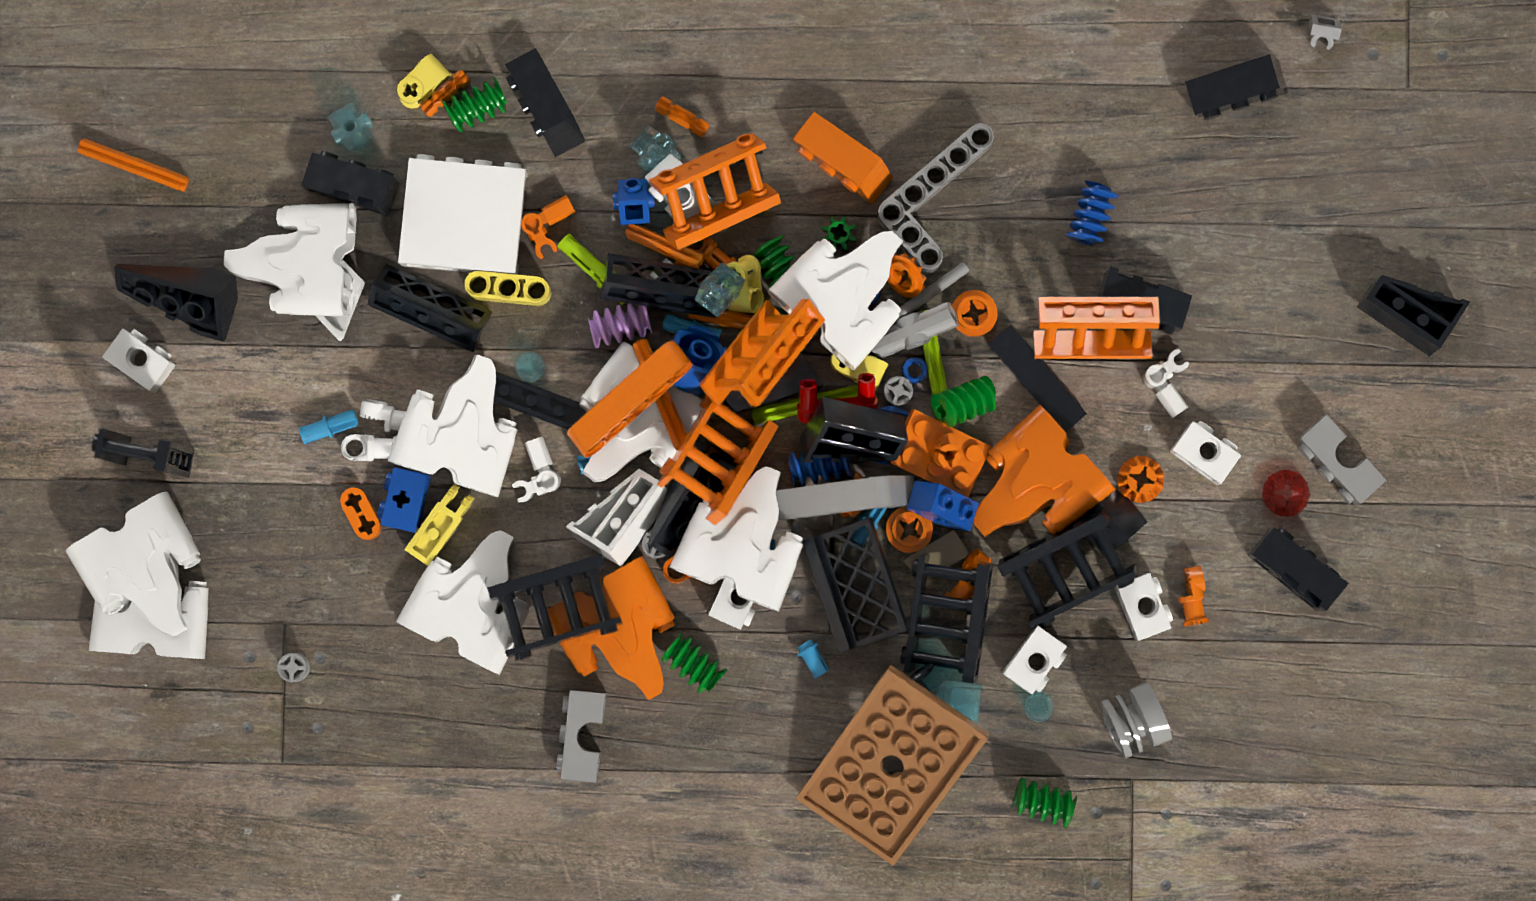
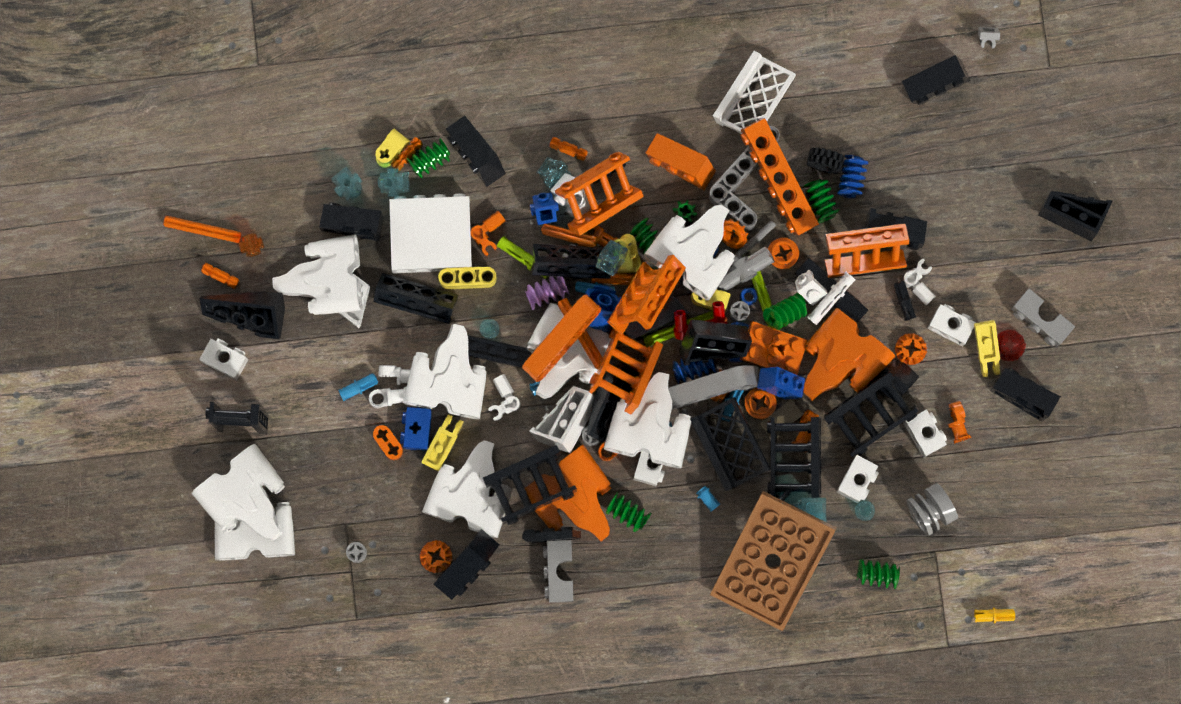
camera: 15 degrees left, 5 degrees down
(150, 236) = (220, 275): none -> orange axle
(200, 198) = (251, 245): none -> clear orange gear
(419, 133) = (393, 182): none -> clear light blue brick
(422, 687) = (426, 559): none -> orange gear
(449, 709) = (466, 565): none -> black wedge
(575, 682) = (550, 534): none -> black hinge
(942, 65) = (742, 84): none -> white fence
(1005, 370) = (810, 288): none -> white bracket
(1015, 269) = (807, 218): none -> orange brick
(1035, 389) = (831, 298): none -> white pin
(1041, 242) = (822, 200): none -> green piece
(1055, 185) = (825, 160): none -> black tyre
(1141, 407) = (904, 300): none -> black axle
(1204, 885) = (994, 615): none -> yellow axle
(1253, 491) = (987, 346): none -> light yellow hinge

